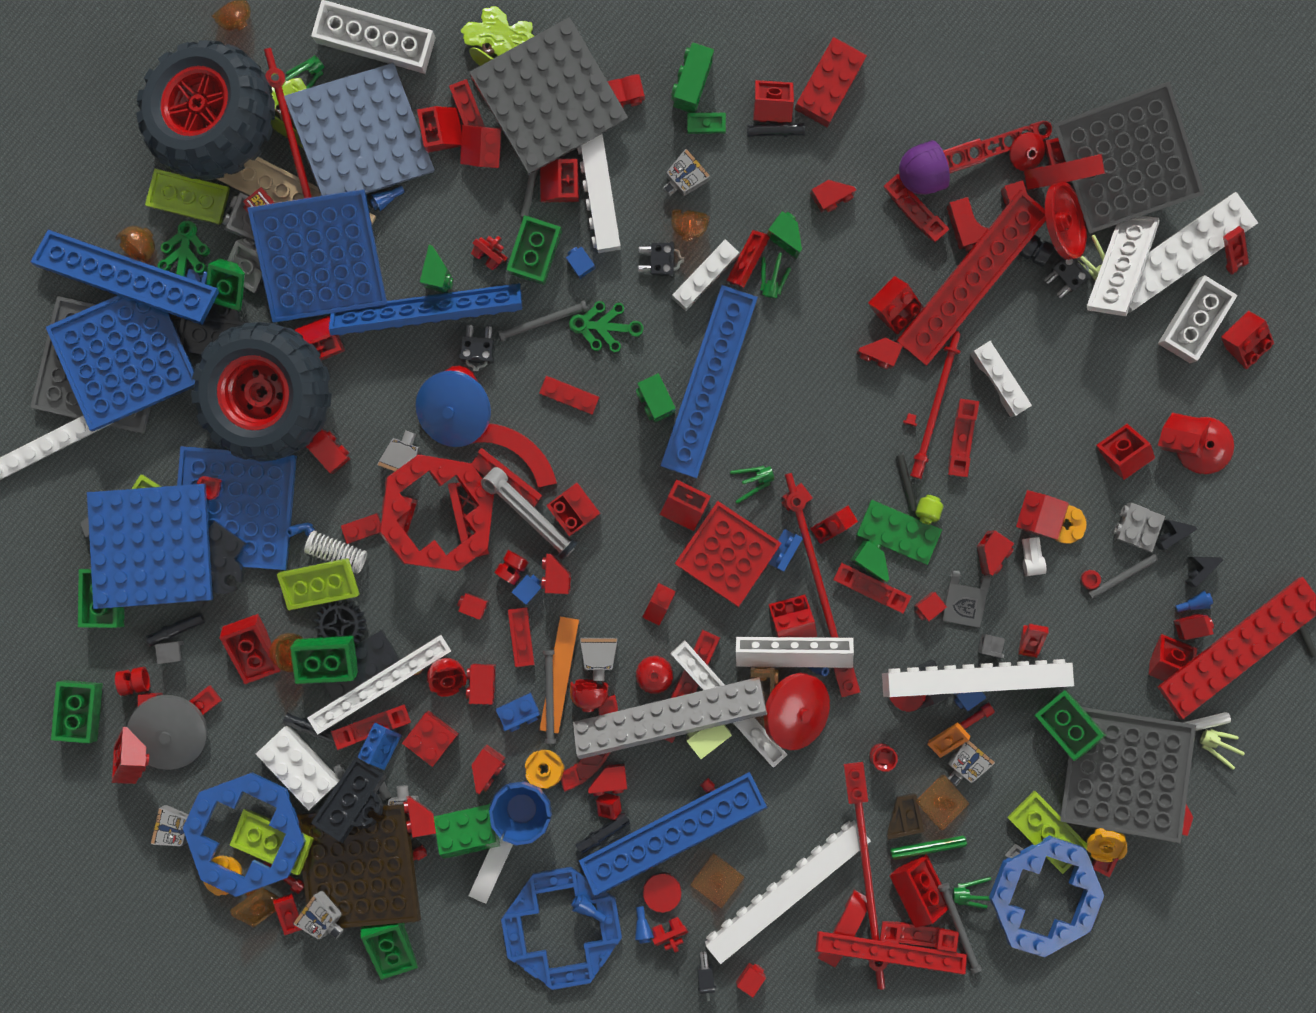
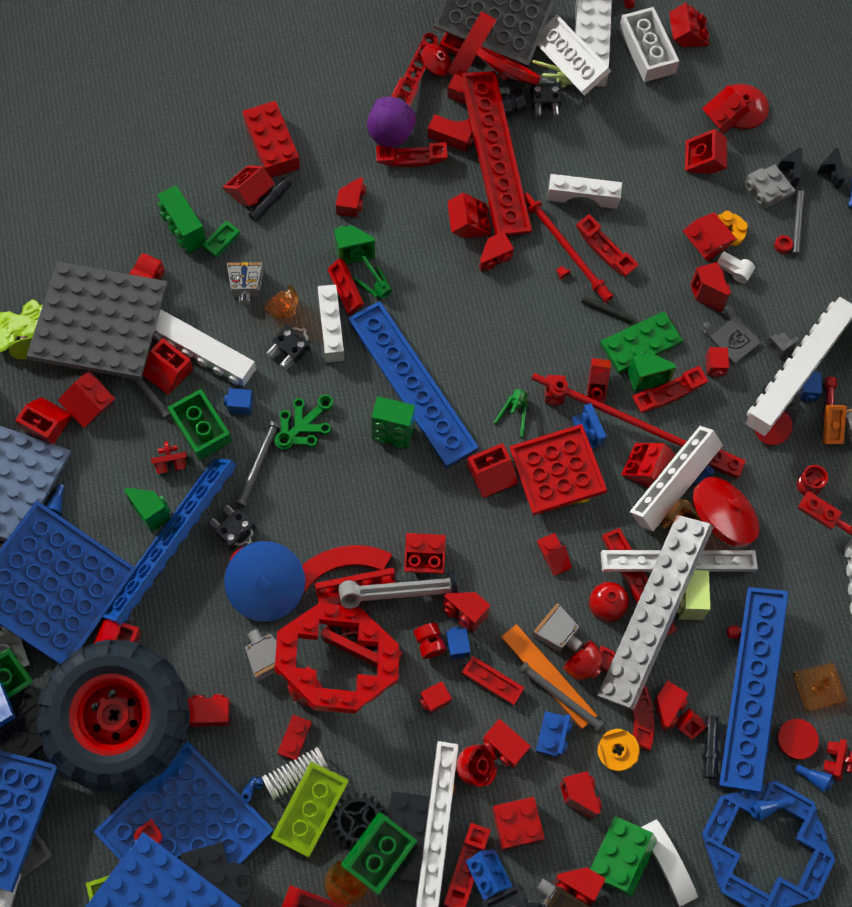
camera: 55 degrees left, 20 degrees down
(466, 103) = (43, 387): red plate -> none
(520, 813) = (642, 791): blue plate -> none
(569, 395) = (332, 491): red plate -> none
(929, 509) = (642, 306): lime head -> none
(1032, 640) = (799, 311): red slope -> none

